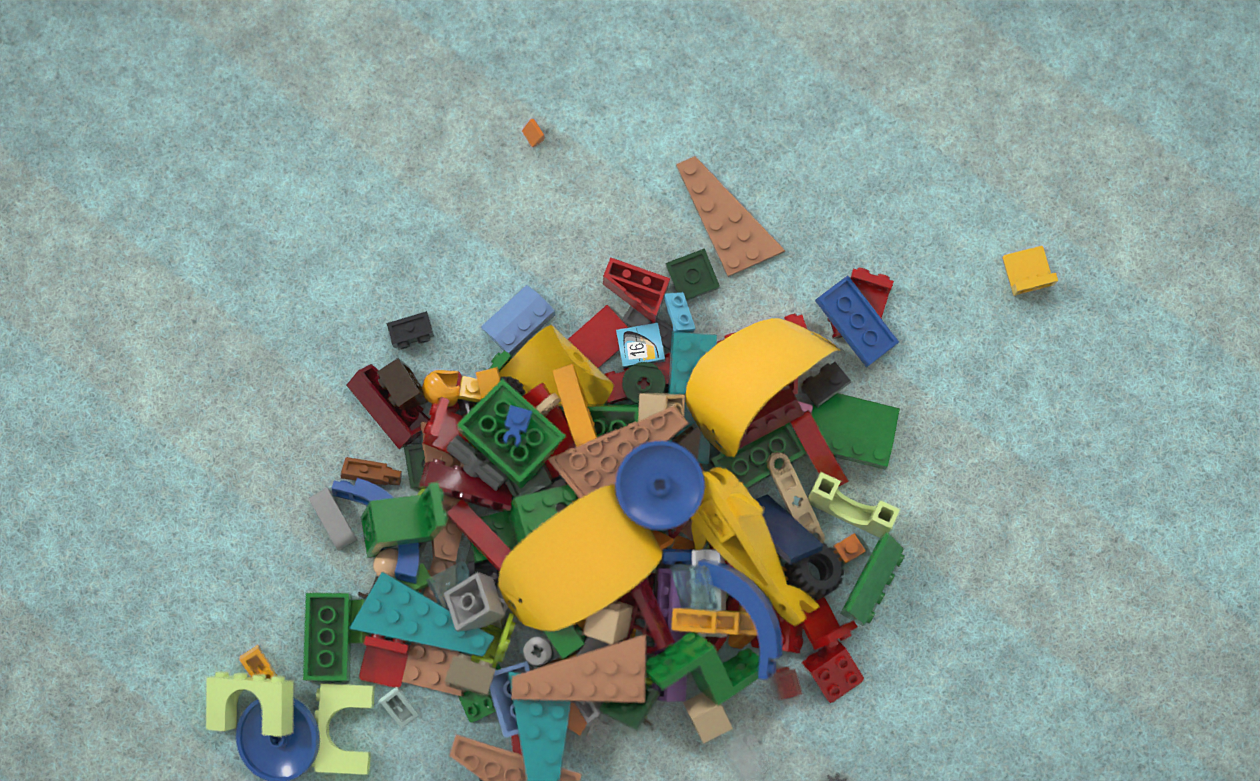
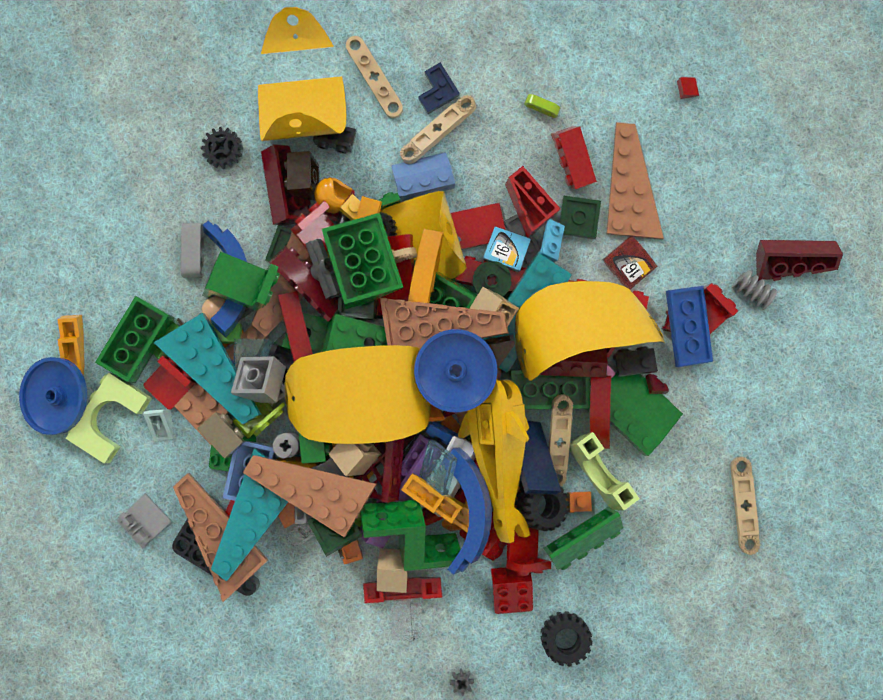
camera: 30 degrees right, 5 degrees up
(273, 694) = (62, 359): yellowish green arch -> none
(303, 411) = (227, 142): none -> black gear
(360, 319) = (300, 106): none -> yellow piece
(370, 471) = (241, 230): dark orange hinge -> none
(427, 258) = (381, 88): none -> tan piece
(490, 227) = (442, 91): none -> dark blue plate
(502, 279) = (429, 137): none -> tan piece
(517, 422) = (370, 253): blue plate -> none
(533, 133) = (518, 35): orange slope -> none
(595, 188) = (542, 105): none -> lime beam
(654, 220) = (574, 157): none -> red wedge
(659, 722) = (352, 552): none -> orange plate
(725, 92) = (687, 87): none -> red slope
(740, 721) = (416, 588): none -> red slope
(766, 292) = (630, 262): none -> slope
(786, 683) = (469, 582): clear red brick -> none
(857, 395) = (655, 385): none -> dark red tile
(899, 250) = (756, 289): none -> light grey piece
(920, 200) = (795, 258): none -> dark red wedge
(929, 681) = (574, 653): none -> black tyre
(1018, 475) = (745, 520): none -> tan piece
(1028, 270) = (849, 363): yellow bracket -> none

